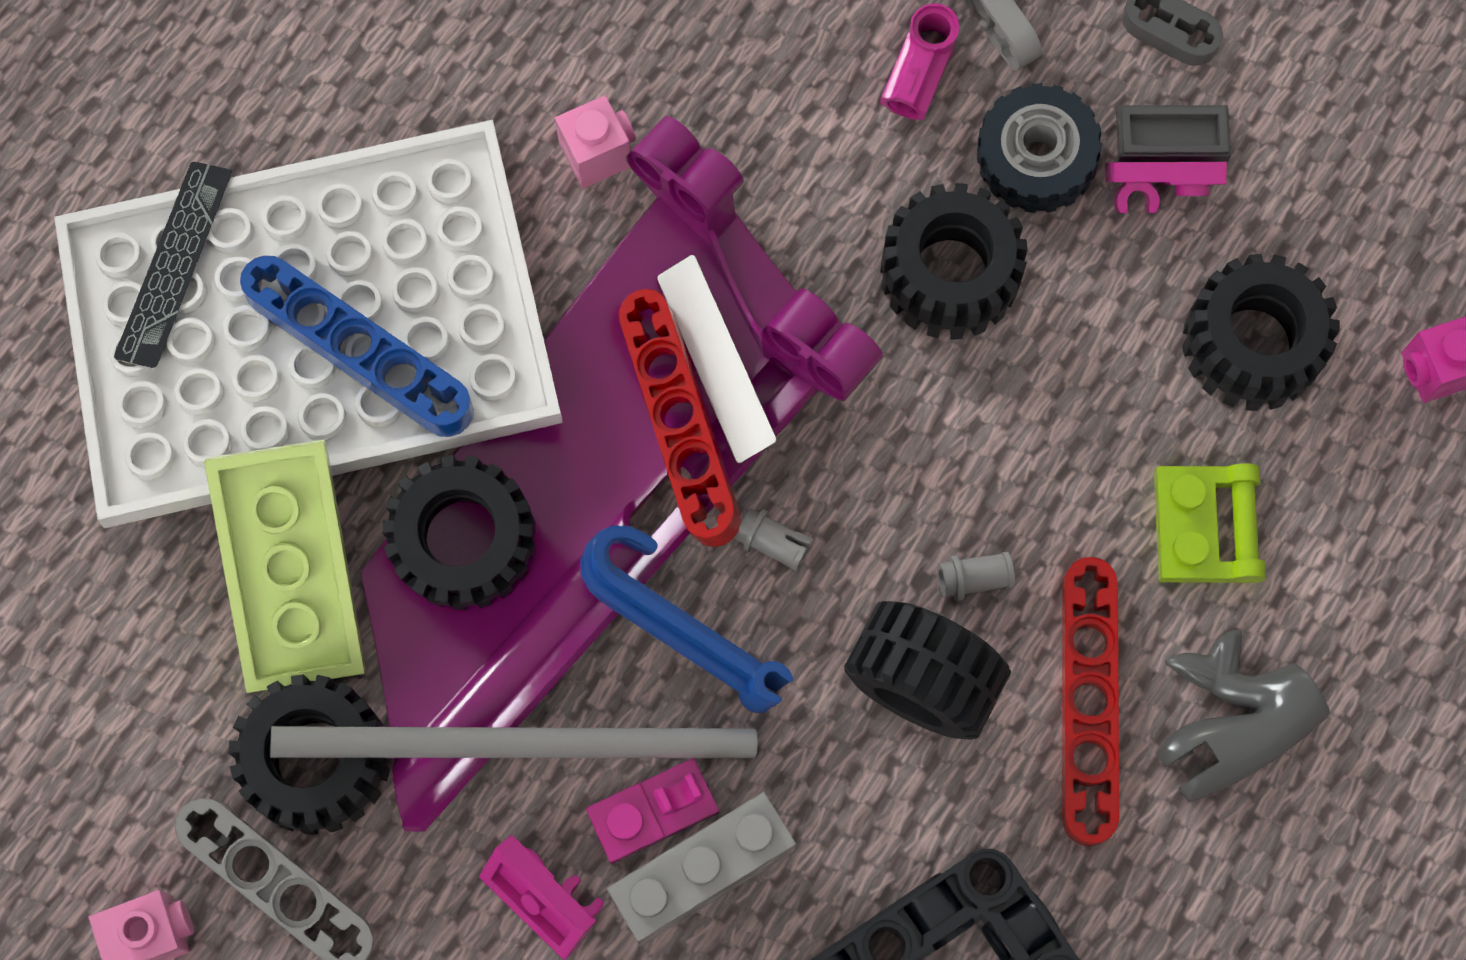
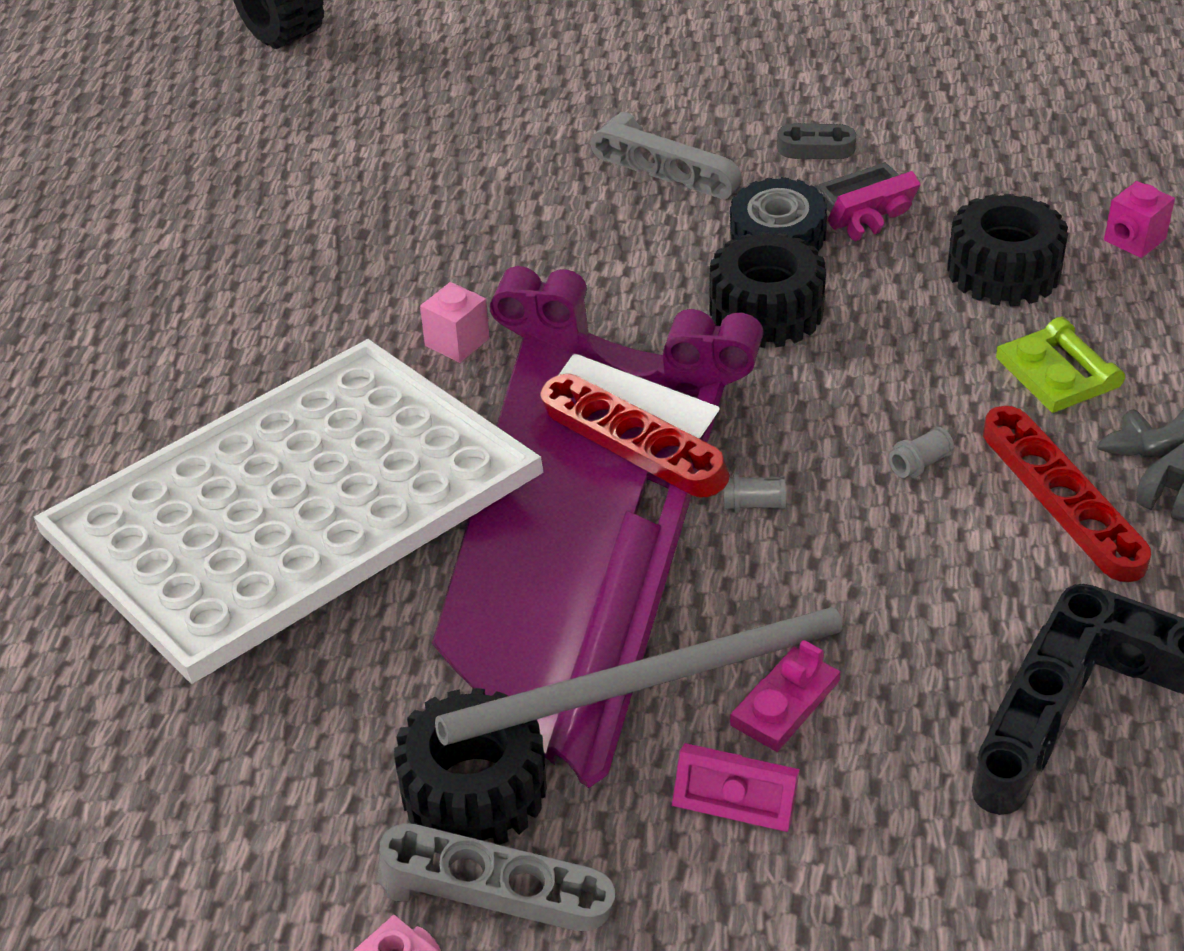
camera: 25 degrees left, 30 degrees down
(173, 265) = (157, 504): black sticker -> none
(285, 564) = (366, 633): yellowish green plate -> none
(367, 368) = (430, 480): blue beam -> none
(429, 494) = (507, 598): black tyre -> none
(674, 625) = (809, 575): blue piece -> none
(702, 869) = (857, 706): light grey brick -> none
(921, 63) = (663, 206): dark pink piece -> none
(927, 669) = (937, 494): black tyre -> none

